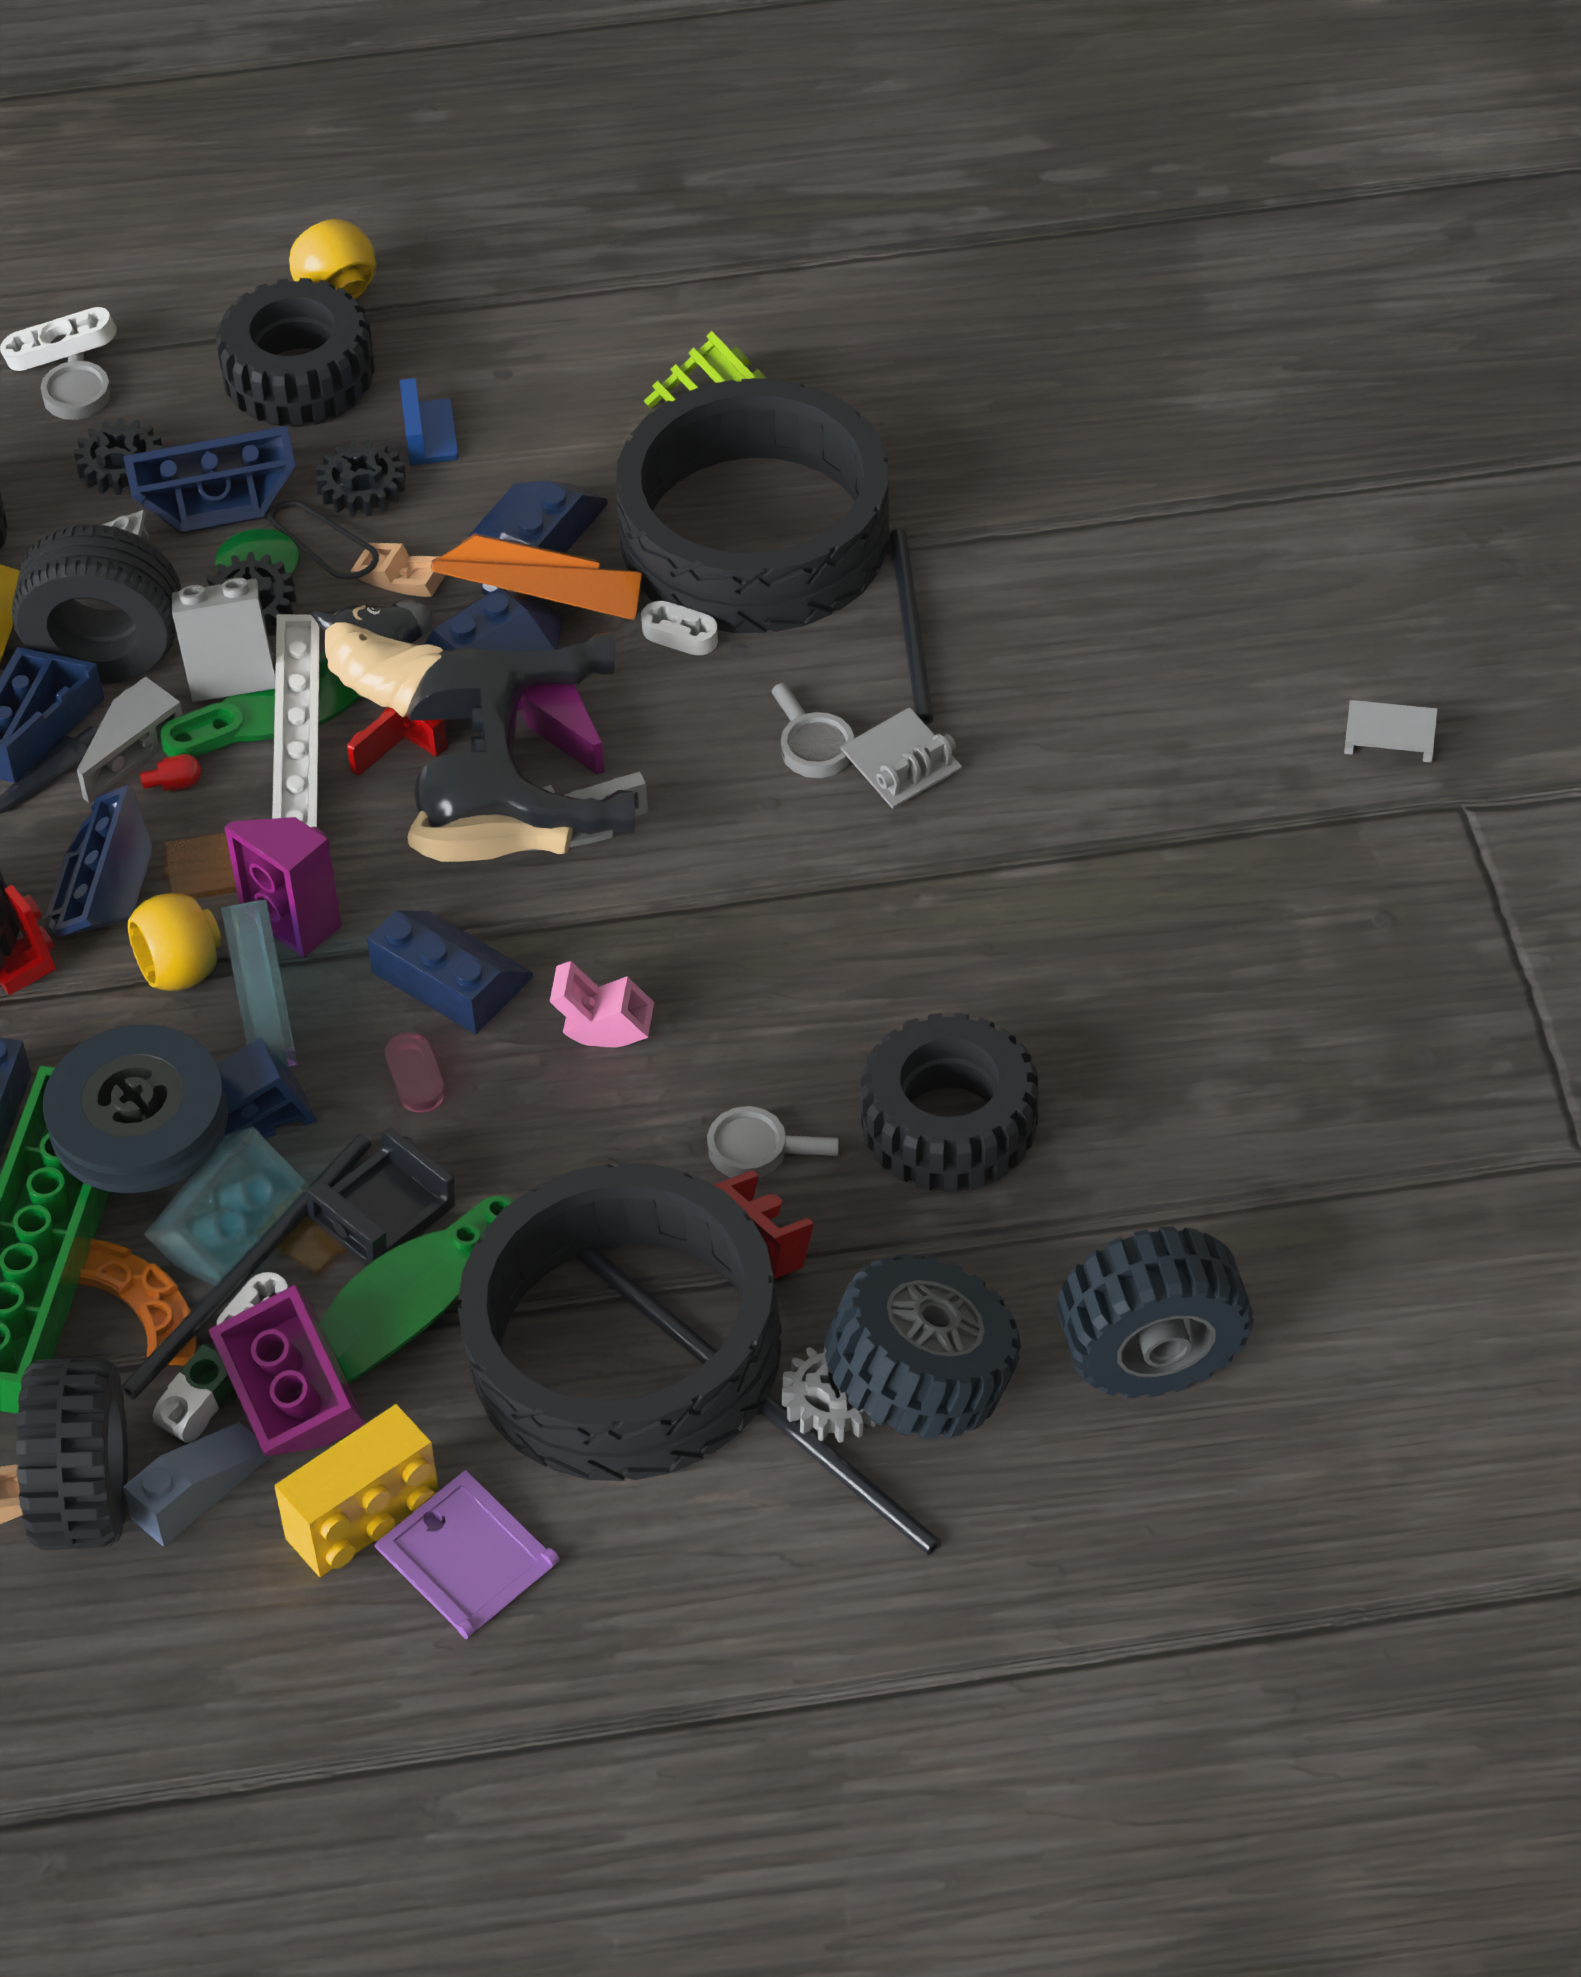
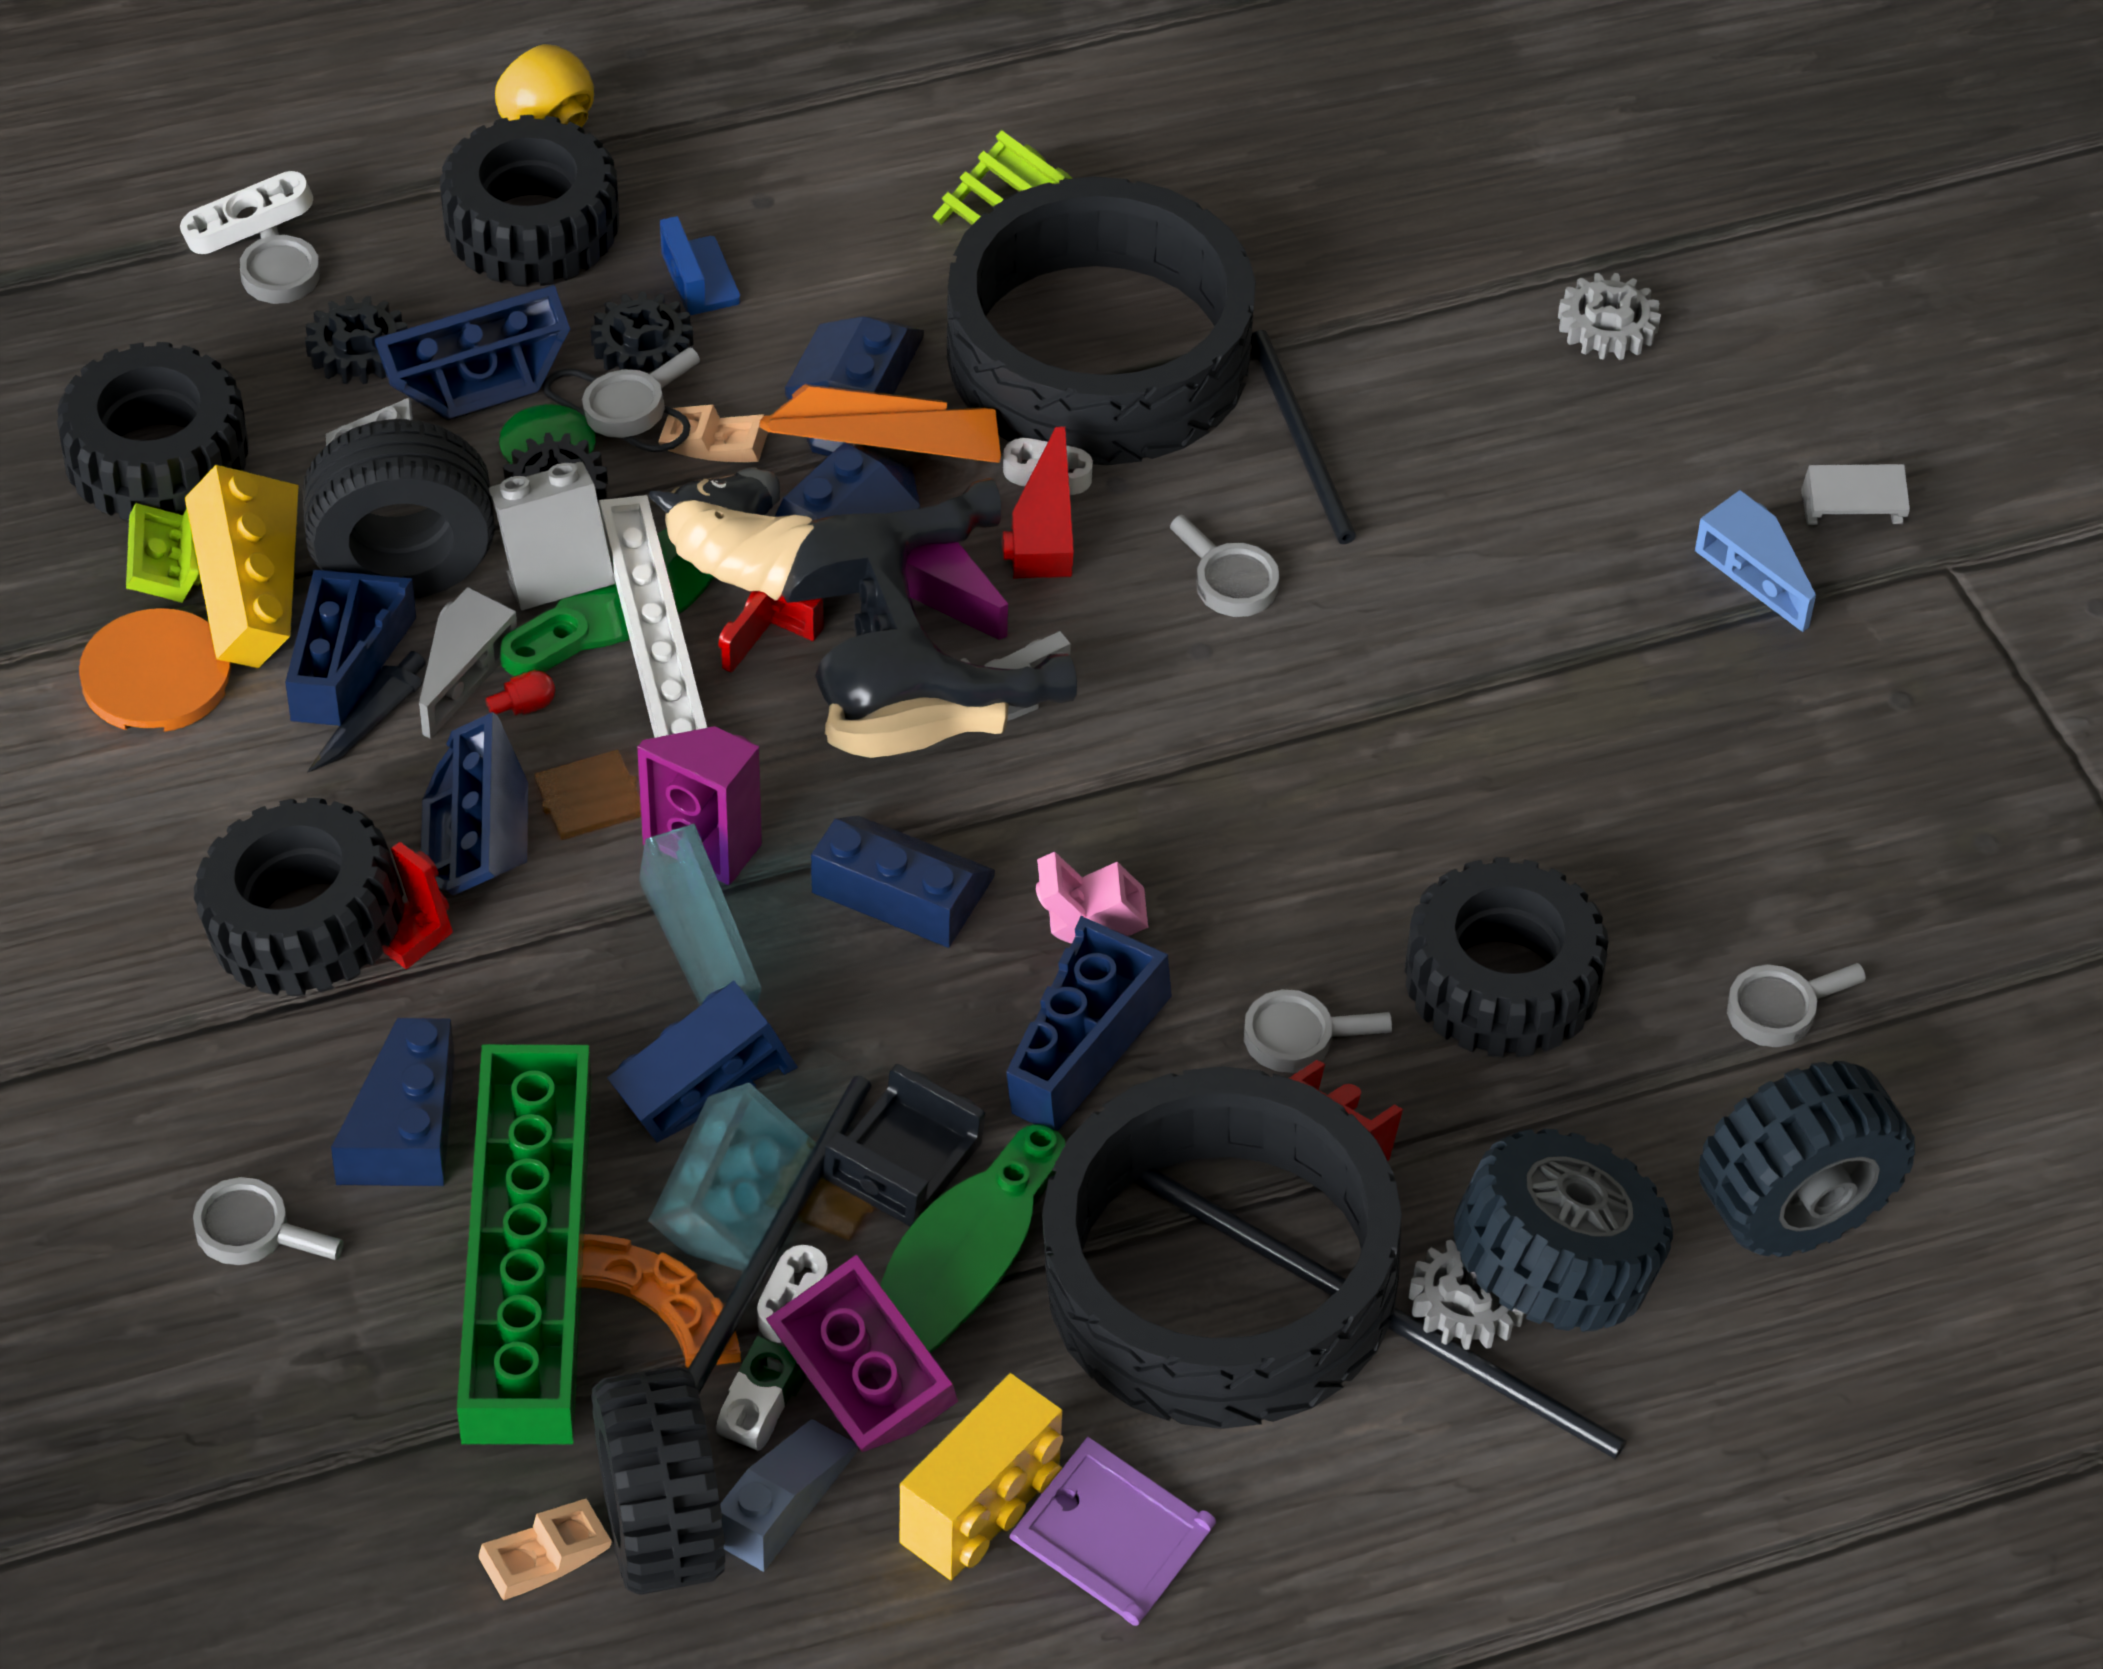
camera: 15 degrees left, 0 degrees up
(105, 1137) = (608, 1120): black wheel -> none
(174, 941) = (587, 884): yellow wheel -> none
(336, 531) = (632, 400): none -> light grey piece
(414, 1072) = (895, 999): clear pink tile -> none
(565, 1112) = (1086, 1022): none -> dark blue wedge
(656, 670) = (1041, 520): none -> red slope
(902, 757) = (1337, 582): light grey hinge -> none
(1190, 1174) = (1780, 1005): none -> light grey piece
(1213, 549) = (1609, 316): none -> light grey gear
(1280, 768) = (1755, 553): none -> medium blue slope

